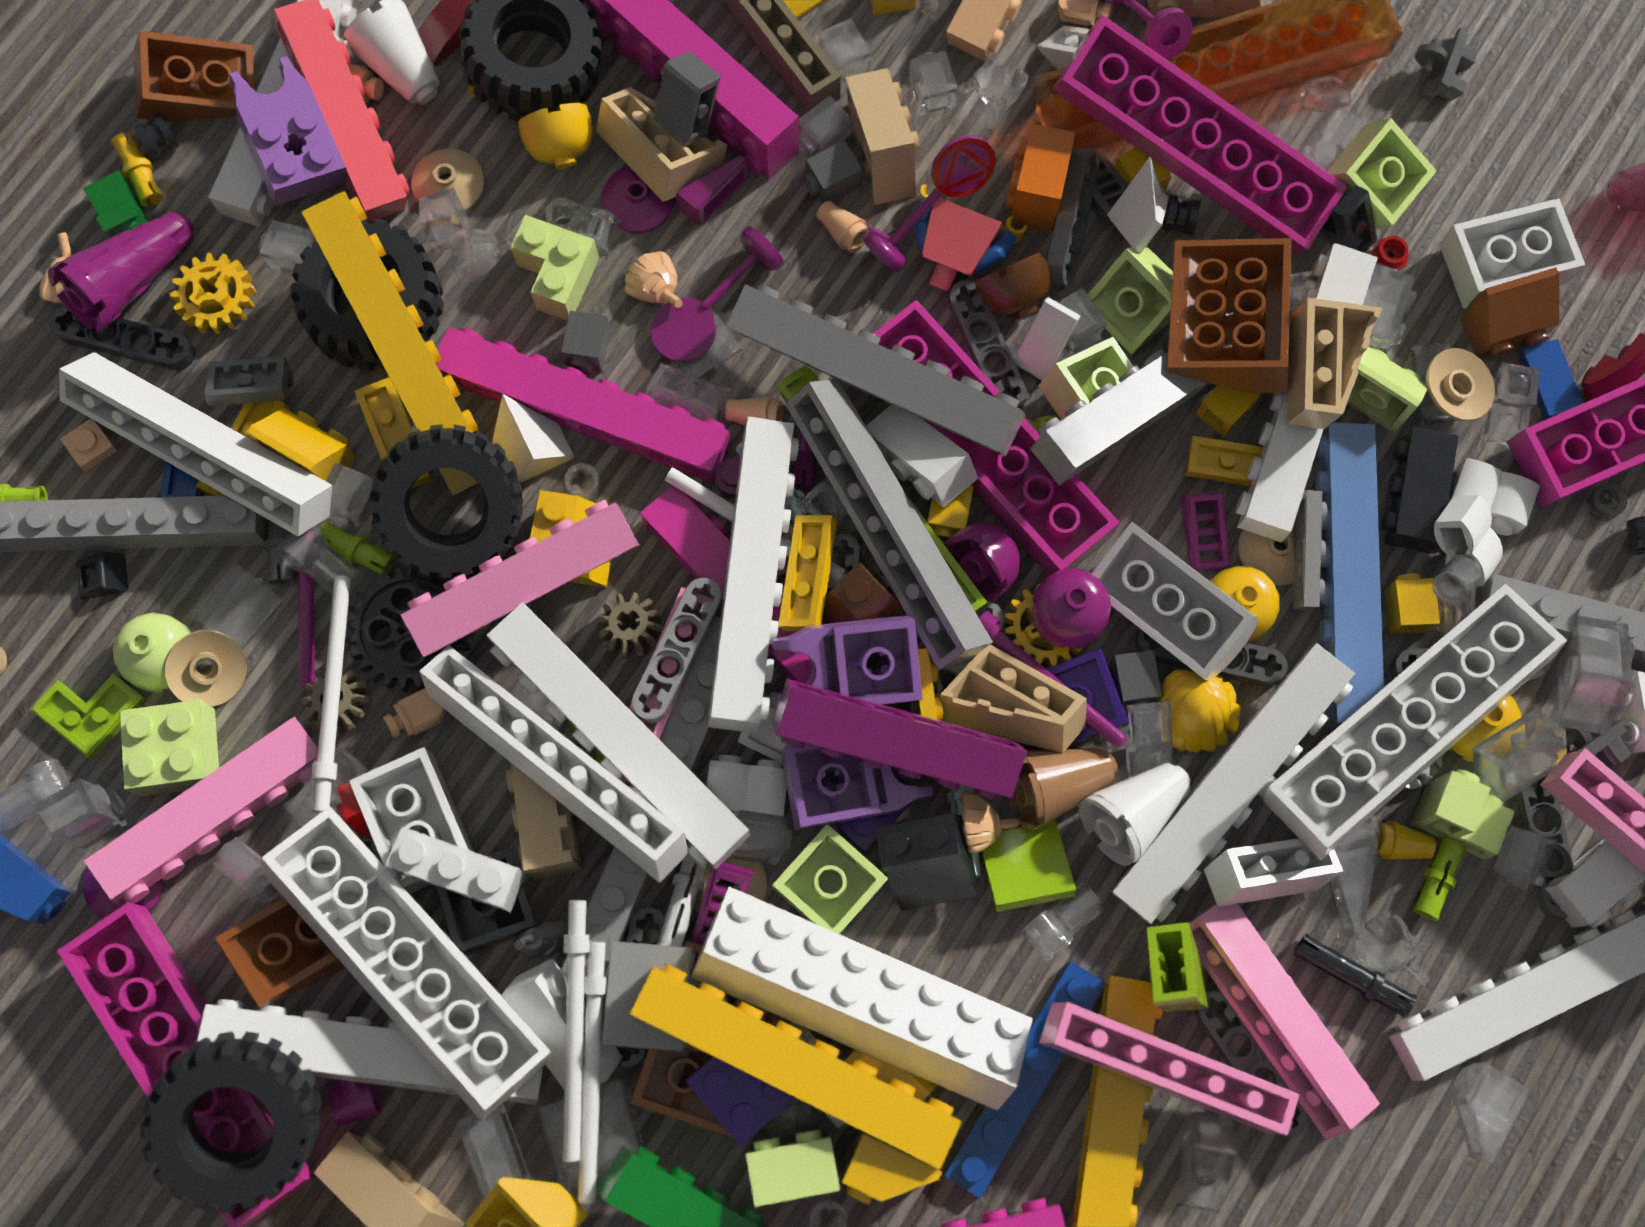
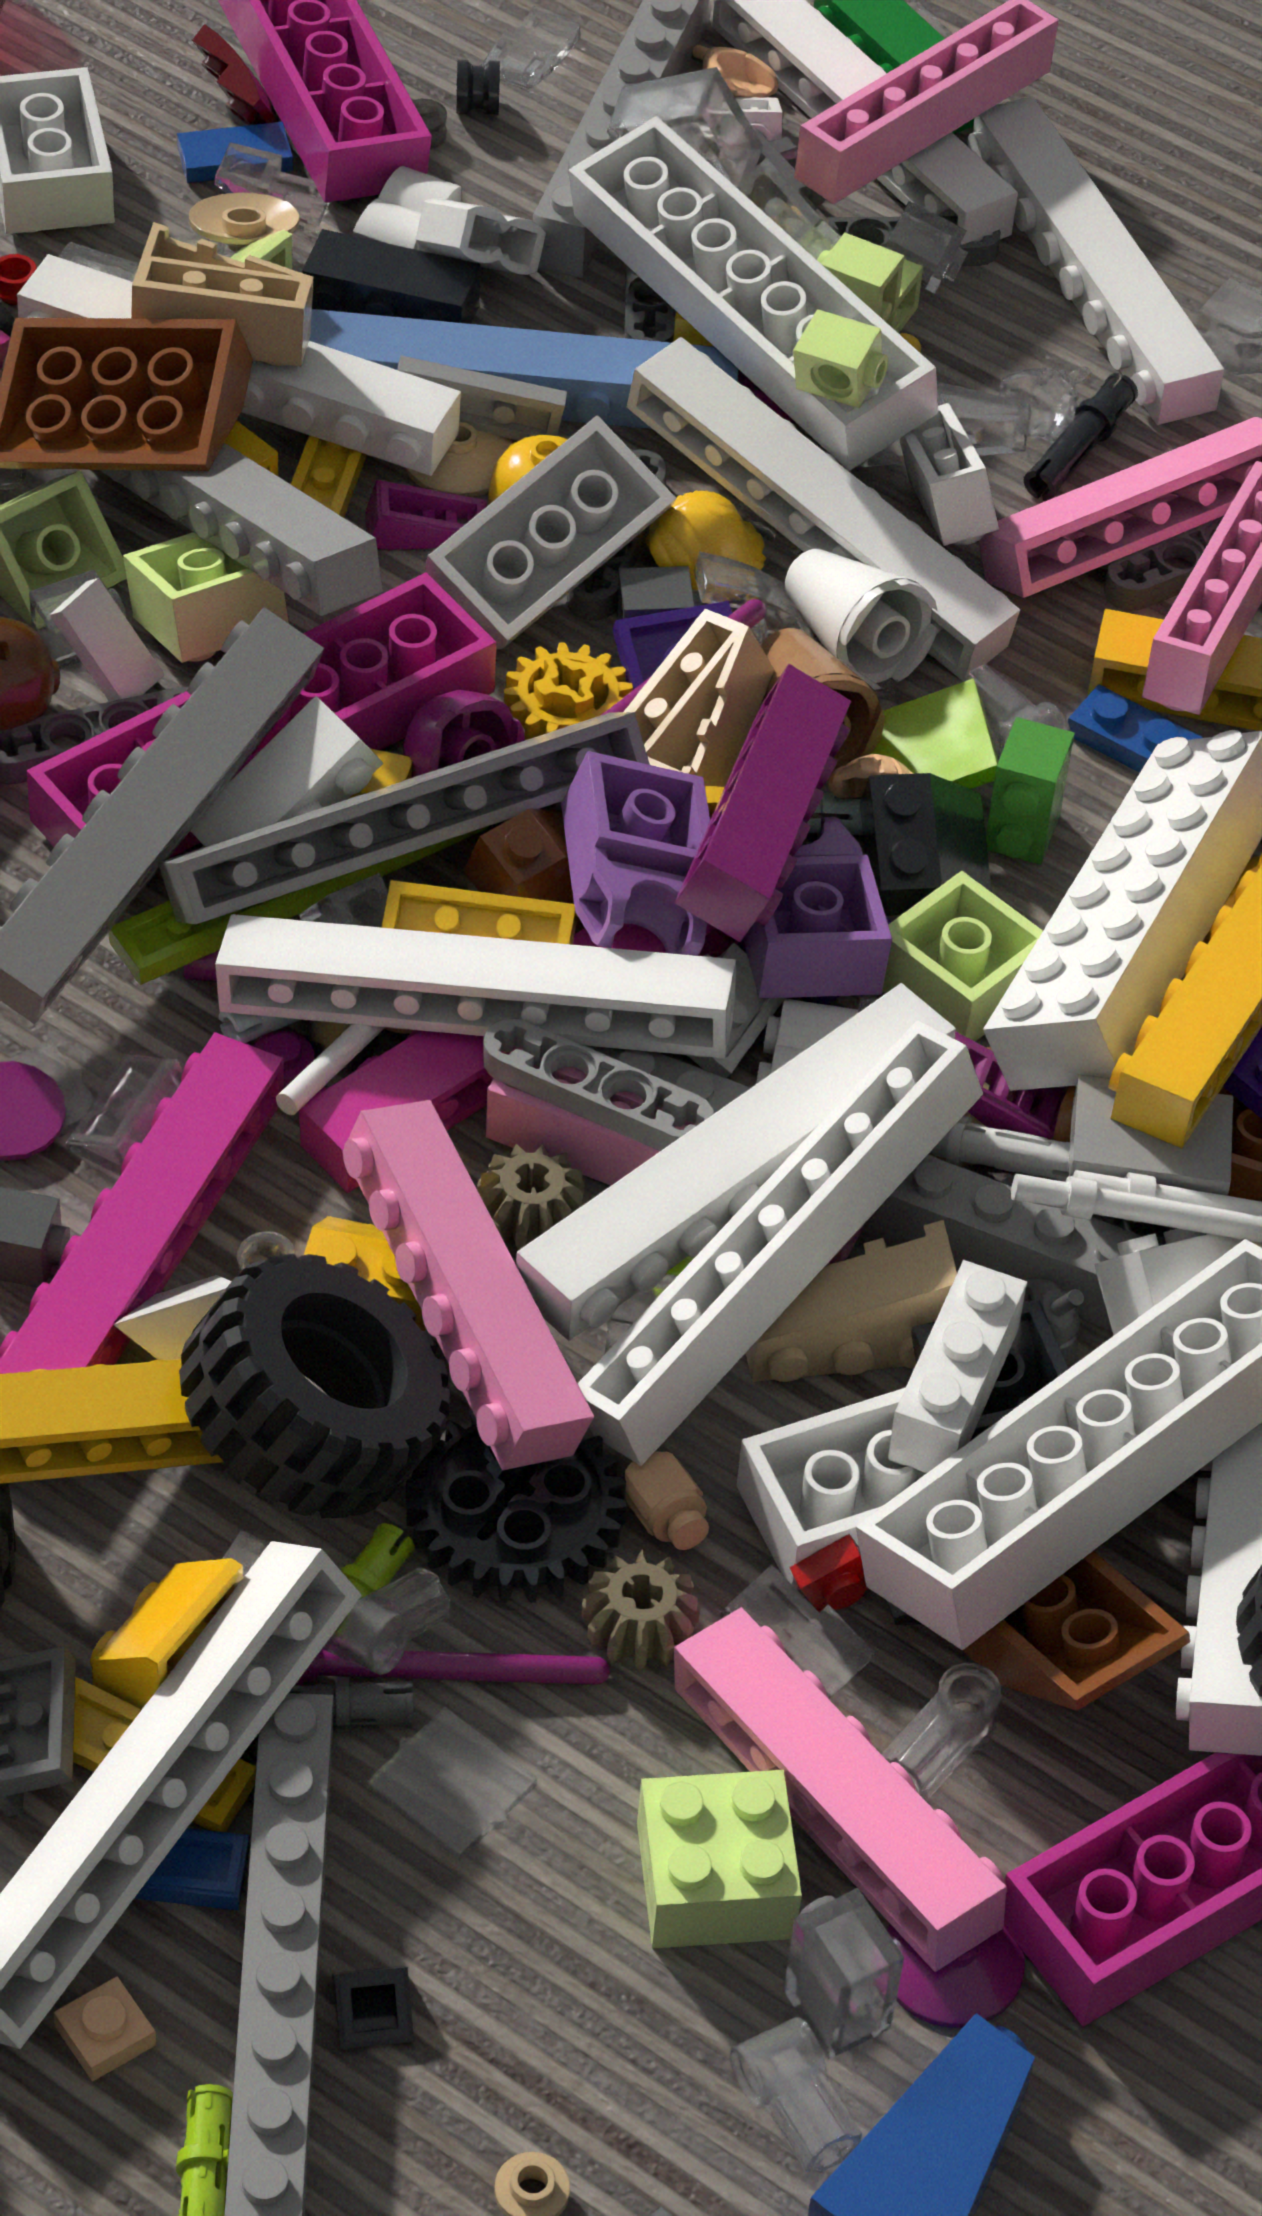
camera: 90 degrees left, 25 degrees down
(87, 723) = (656, 2013): lime tile -> none
(143, 649) = (531, 1902): yellowish green cylinder -> none
(212, 686) = (573, 1805): tan dish -> none
(325, 770) = (774, 1591): white bar -> none
(386, 418) = (149, 1525): yellow plate -> none
(759, 407) = (176, 1015): light nougat cone -> none
(977, 926) = (1028, 790): none -> bright green brick
(1070, 608) = (554, 636): magenta cylinder -> none
(1176, 969) = (1097, 562): lime slope -> none
(1315, 776) = (839, 359): none -> yellowish green brick
(1411, 605) = (561, 306): yellow brick -> none
(1439, 878) = (951, 341): lime pin -> none
(1456, 597) = (560, 260): clear piece -> none
(1513, 314) = (143, 161): dark orange slope -> none

